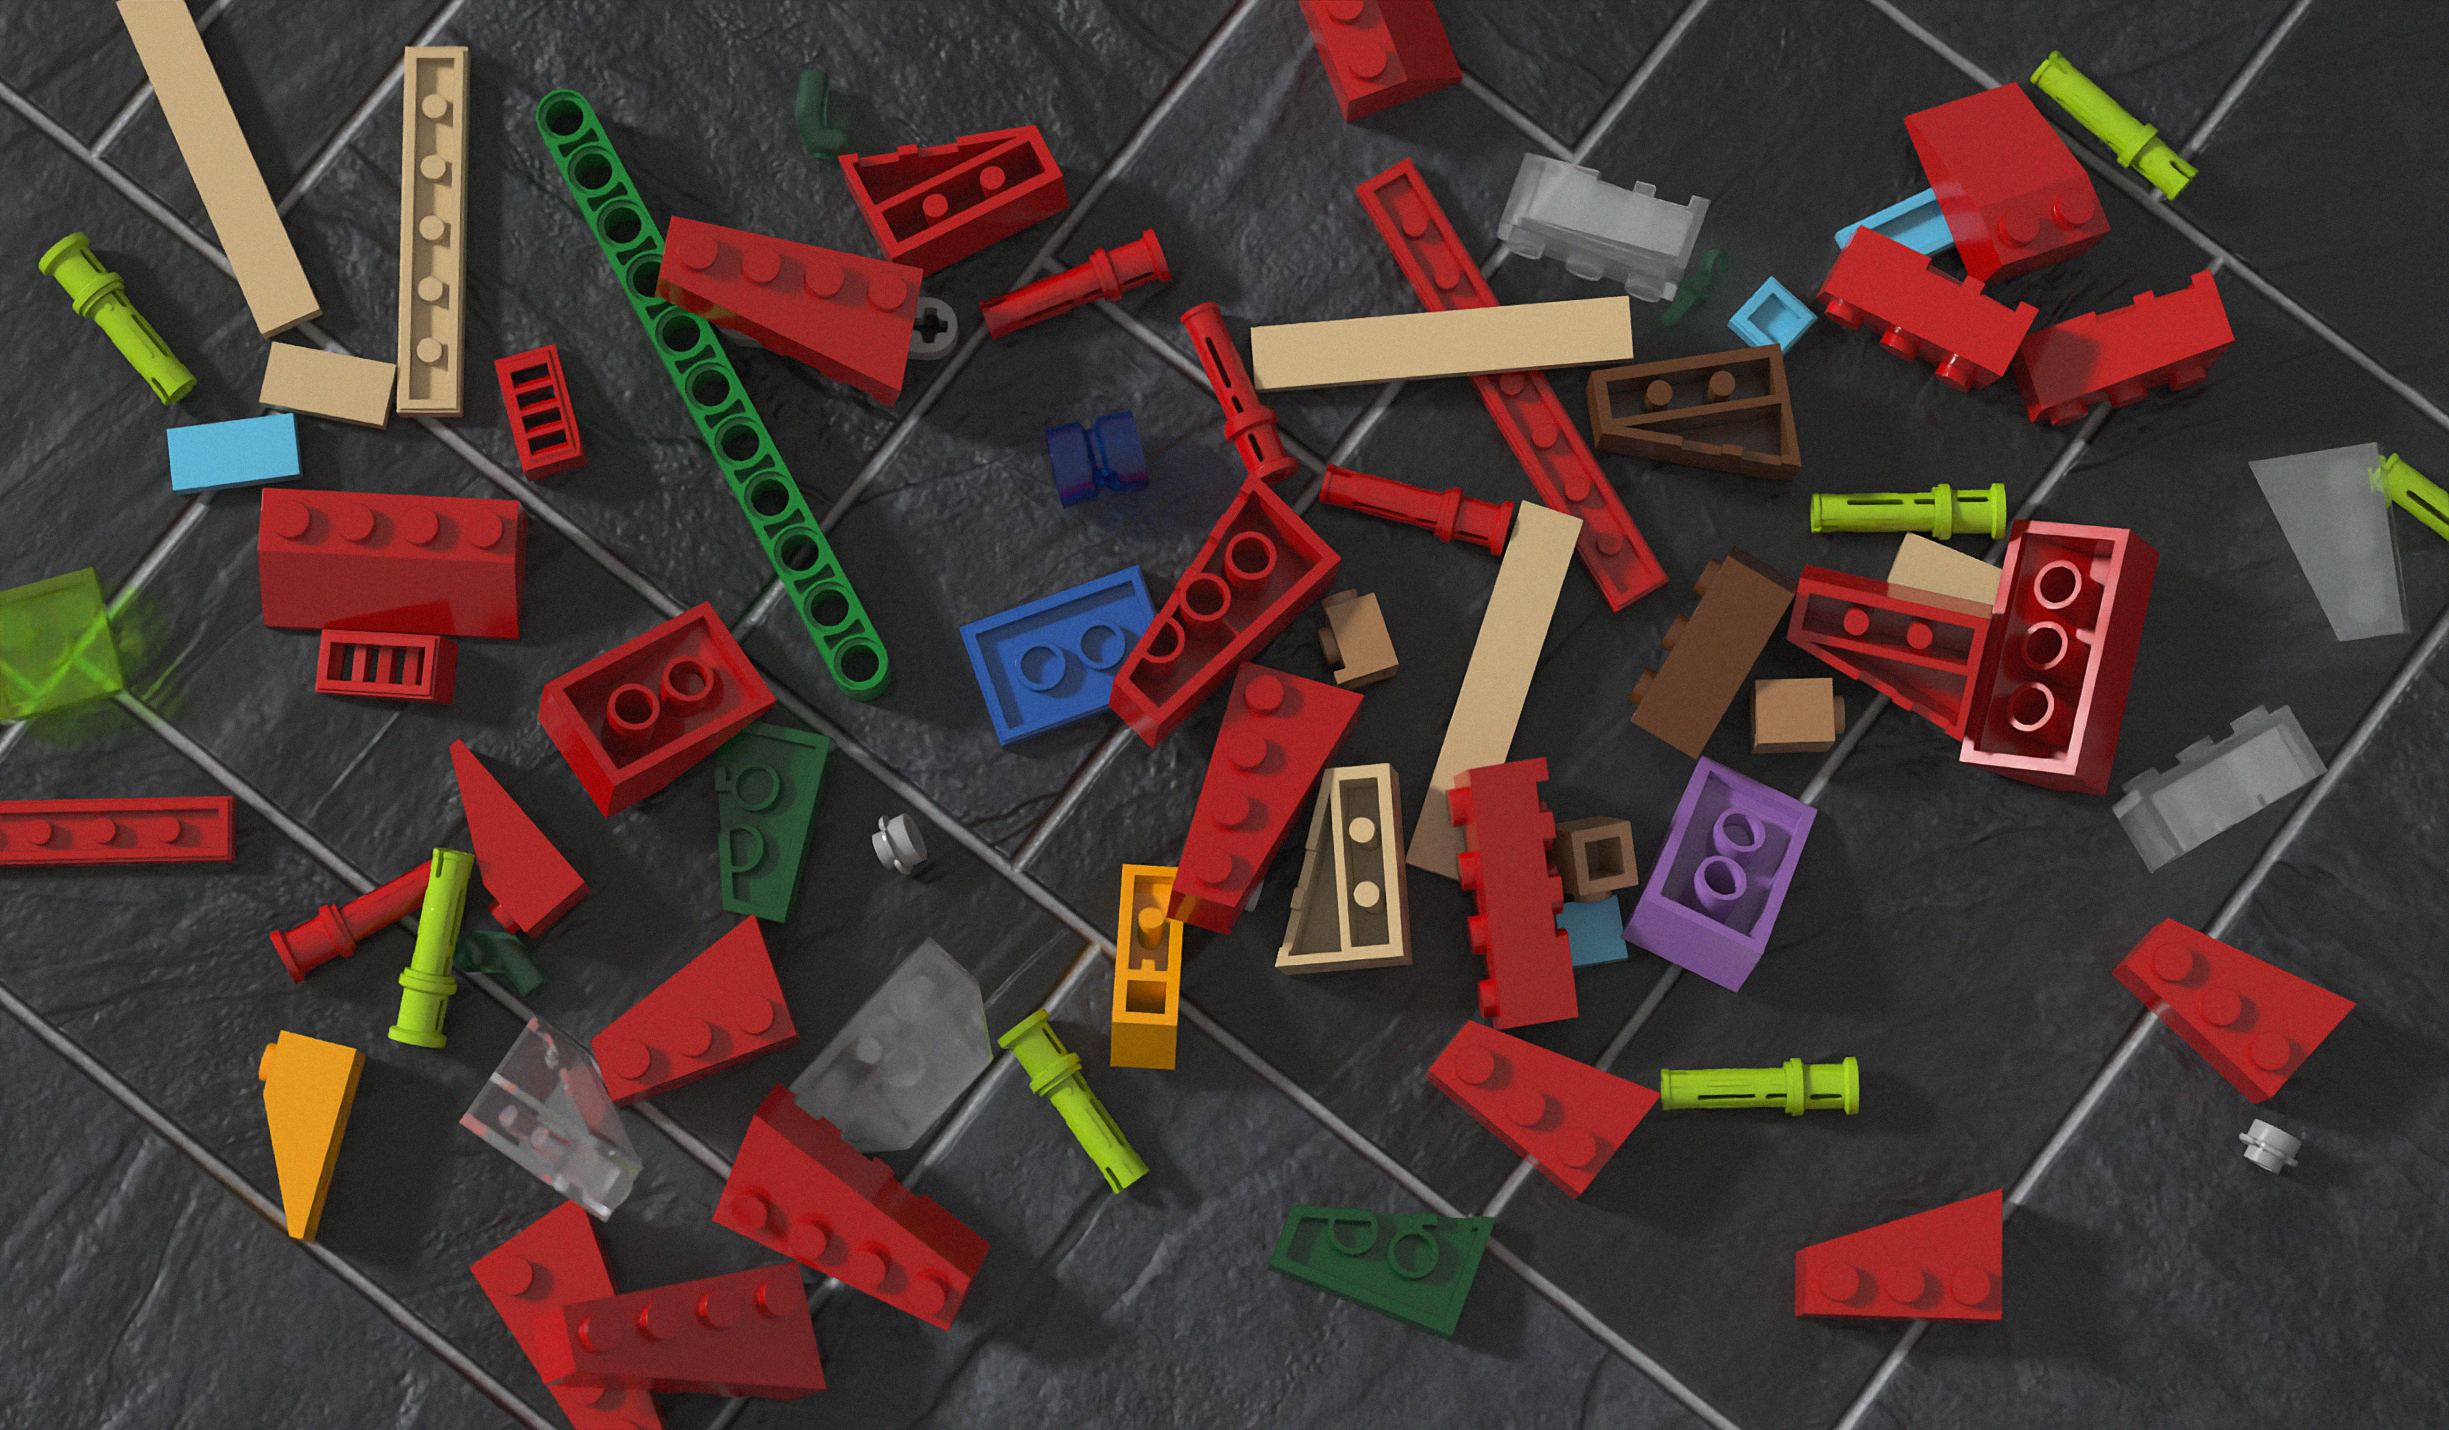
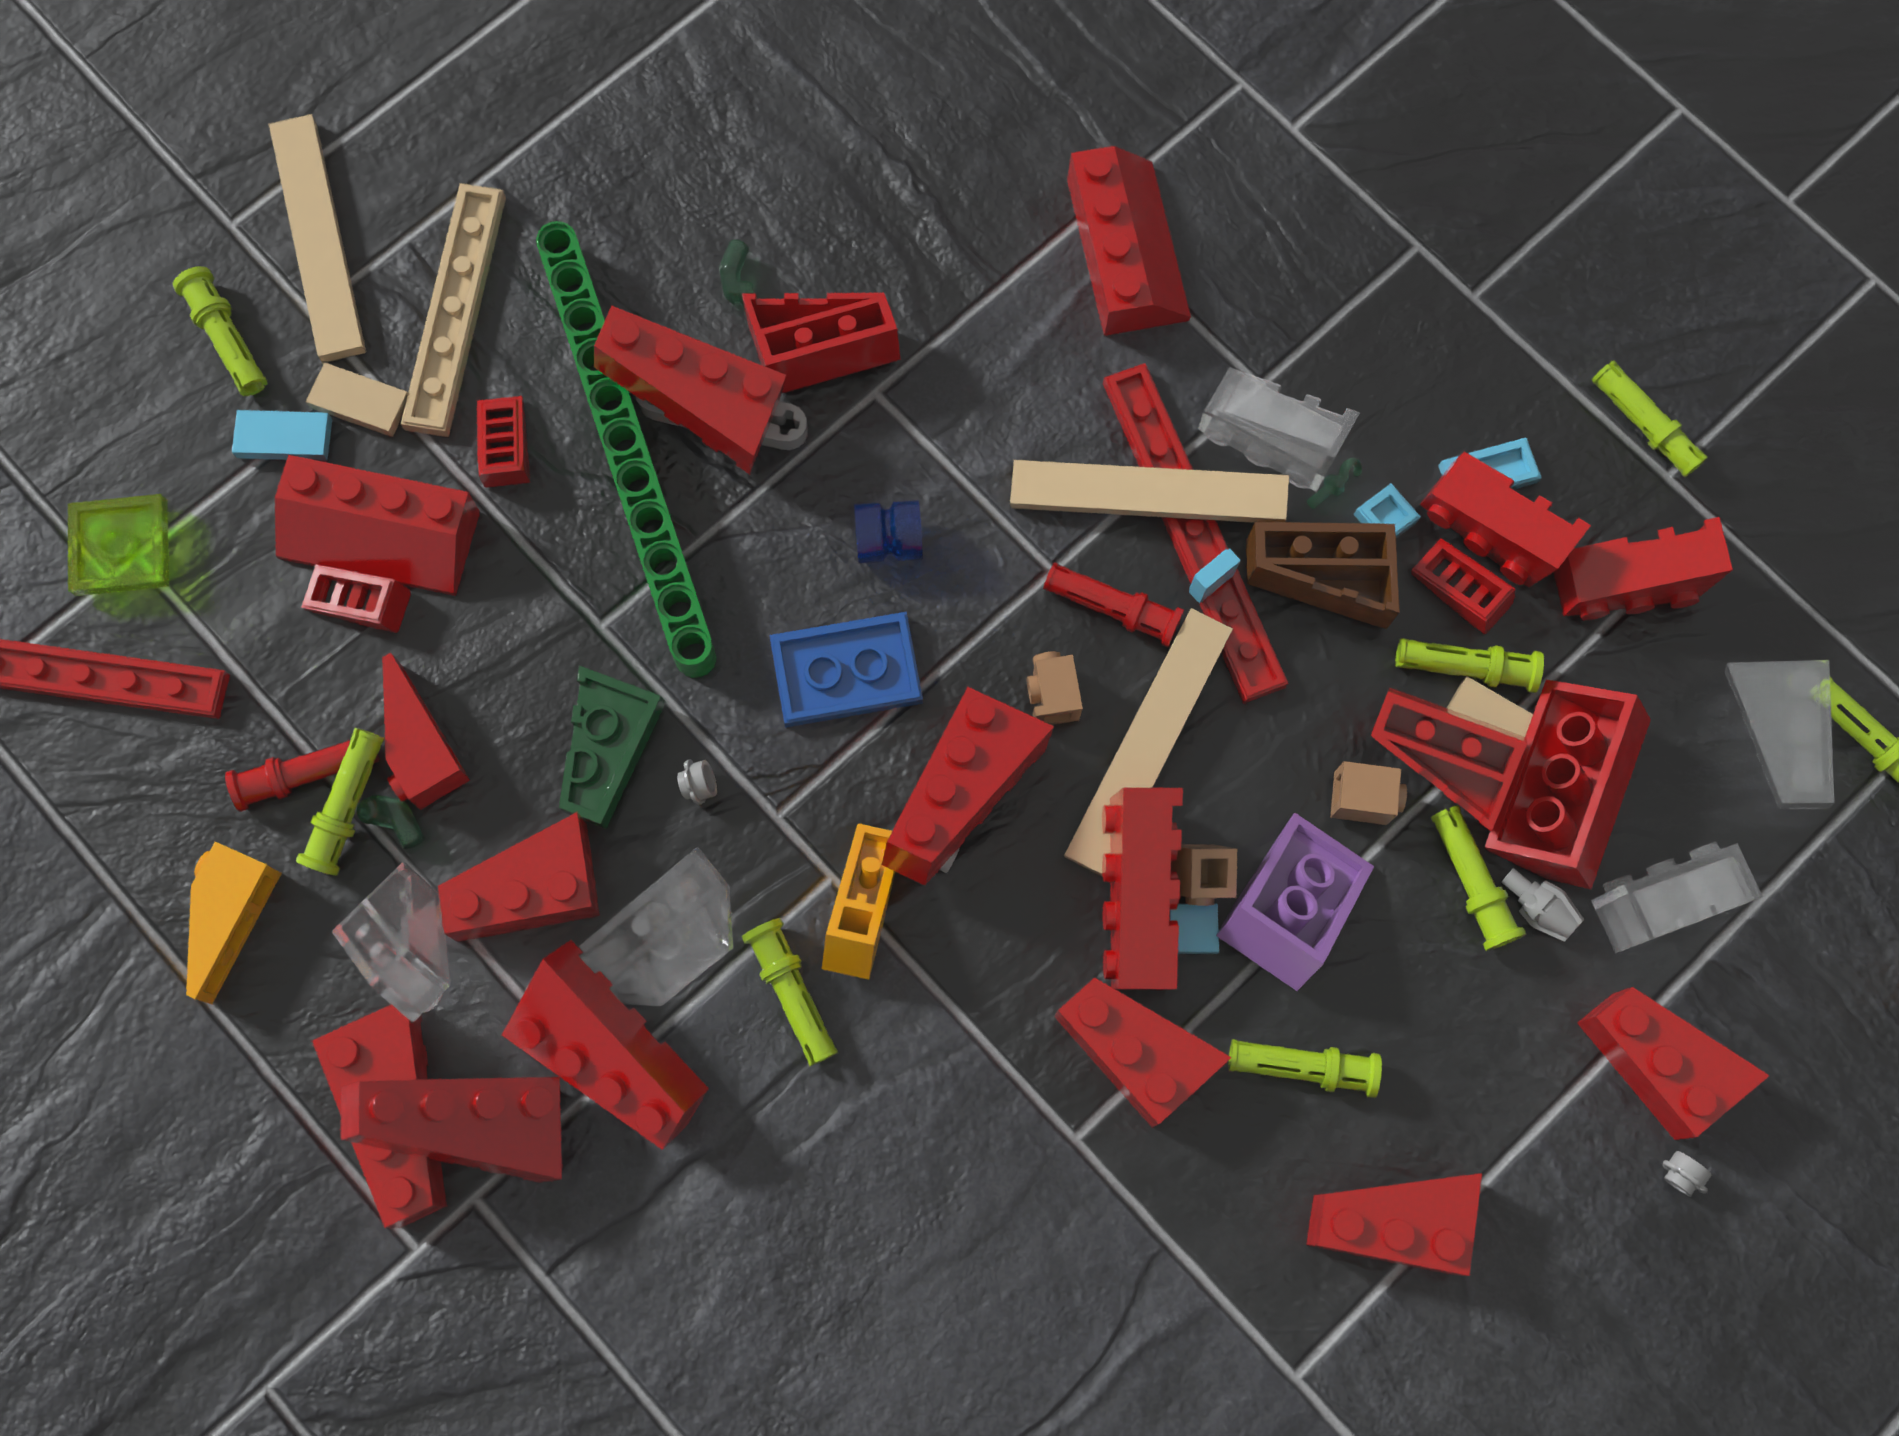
camera: 10 degrees right, 5 degrees down
(653, 707) = (536, 654): red slope -> none
(1103, 276) = (915, 409): red pin -> none
(1226, 608) = (968, 645): red wedge -> none
(1249, 423) = (1002, 524): red pin -> none
(1353, 878) = (1024, 861): tan wedge -> none
(1388, 1263) = (1002, 1151): dark green wing -> none
(1547, 450) = (1214, 575): none -> medium azure tile
(1711, 650) = (1312, 737): reddish brown wedge -> none
(1899, 435) = (1454, 597): none -> red slope
(1969, 831) = (1485, 899): none -> lime pin
(2006, 184) = (1570, 446): red slope -> none
(2048, 826) = (1544, 906): none -> light grey piece

